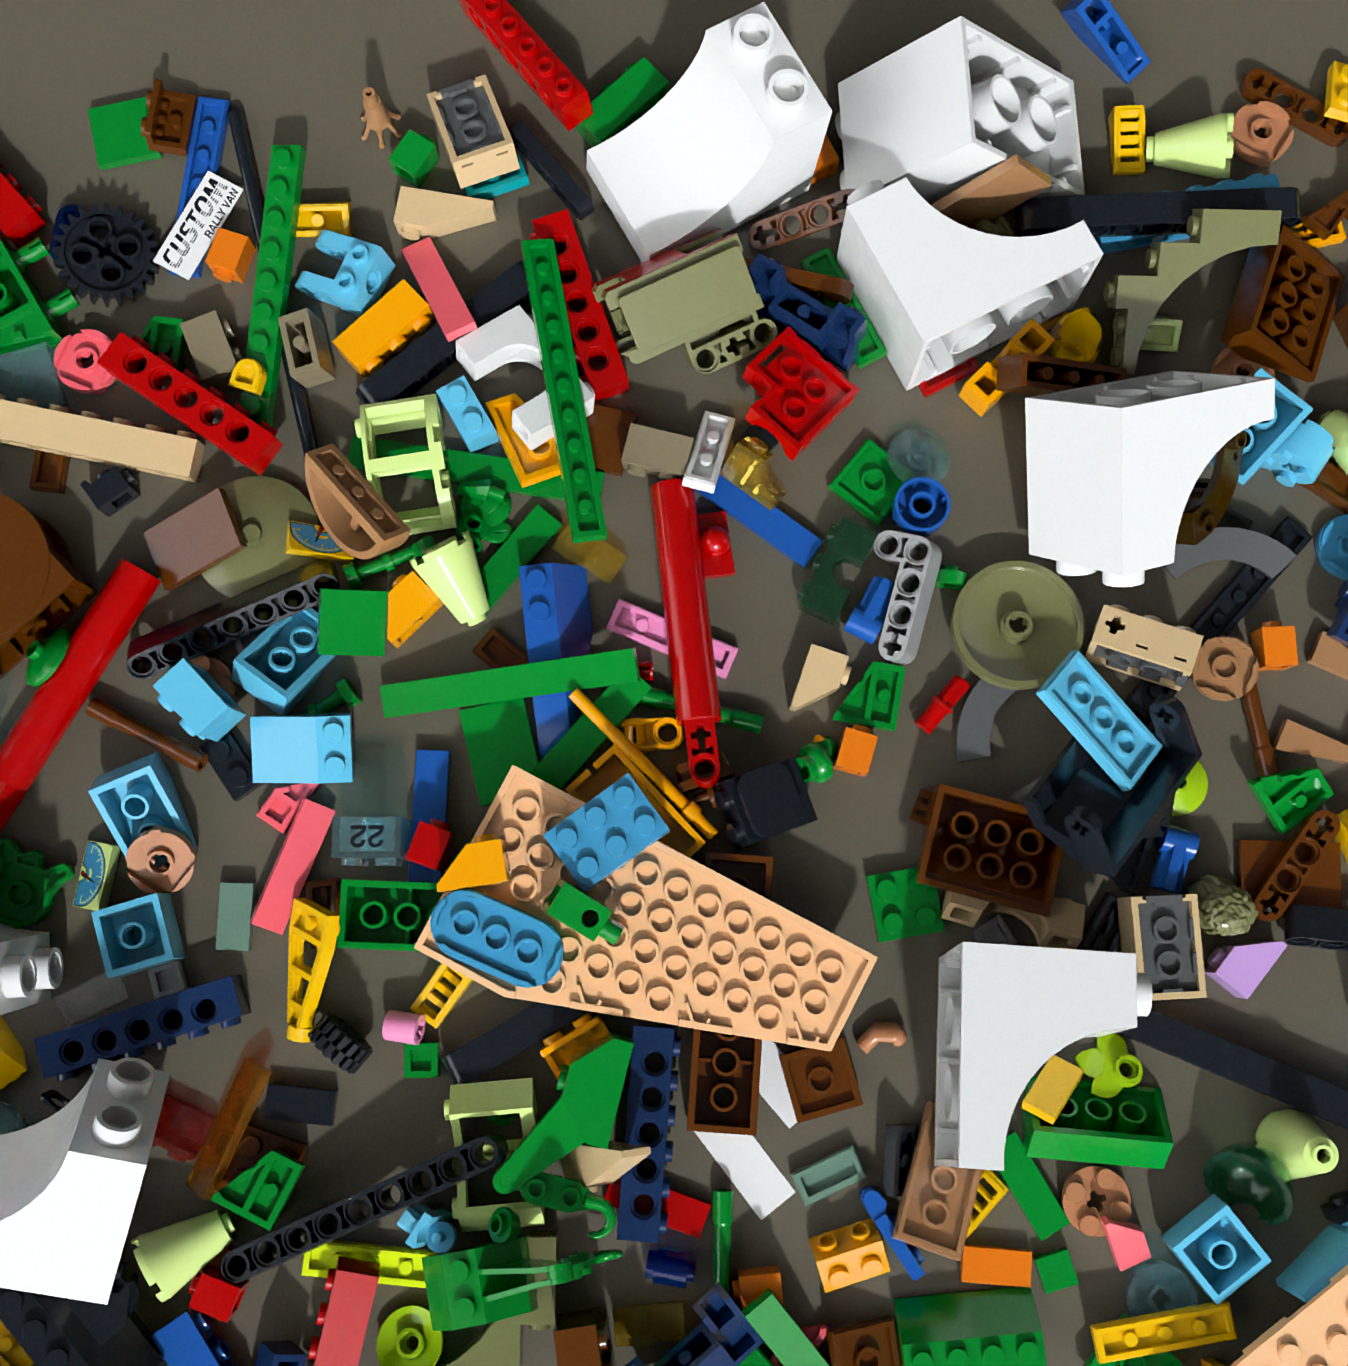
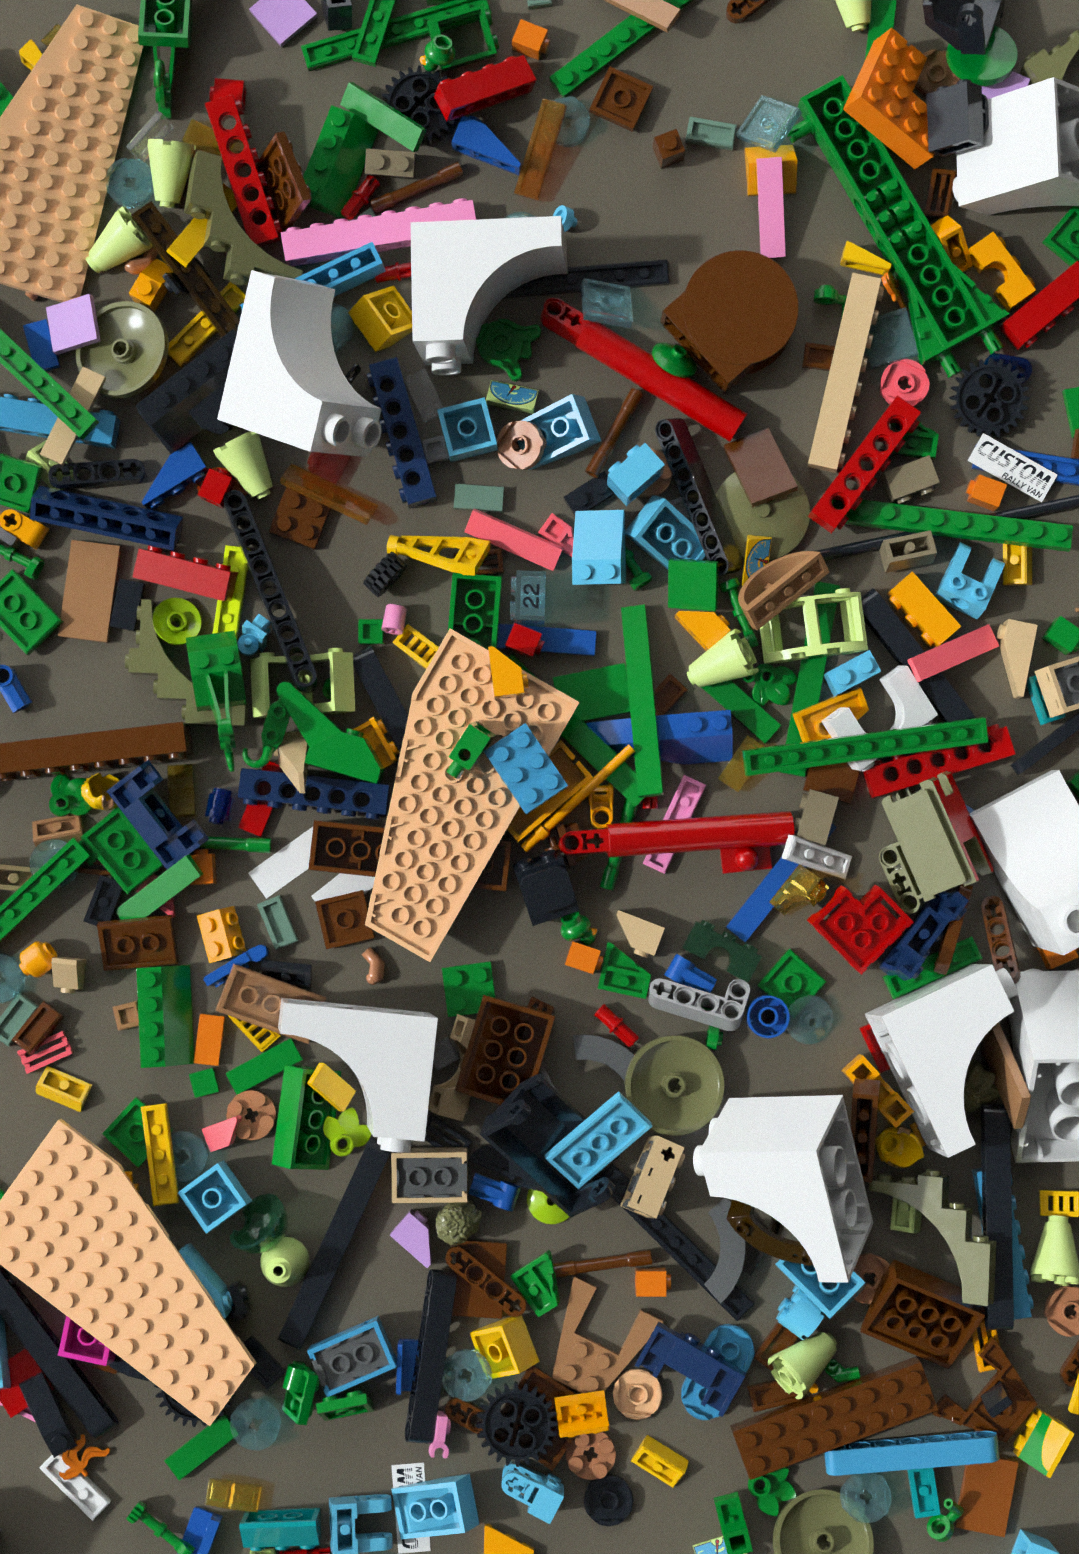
camera: 90 degrees right, 5 degrees up
(112, 490) = (801, 404): black brick -> none
(248, 376) = (885, 508): yellow tile -> none
(262, 1189) = (286, 519): green wing -> none
(301, 1104) = (343, 545): black tile -> none
(481, 490) = (792, 682): green bar -> none
(497, 938) = (454, 688): dark azure tile -> none
(504, 1225) = (255, 689): green plate -> none
(1225, 668) = (635, 1241): medium nougat tile -> none

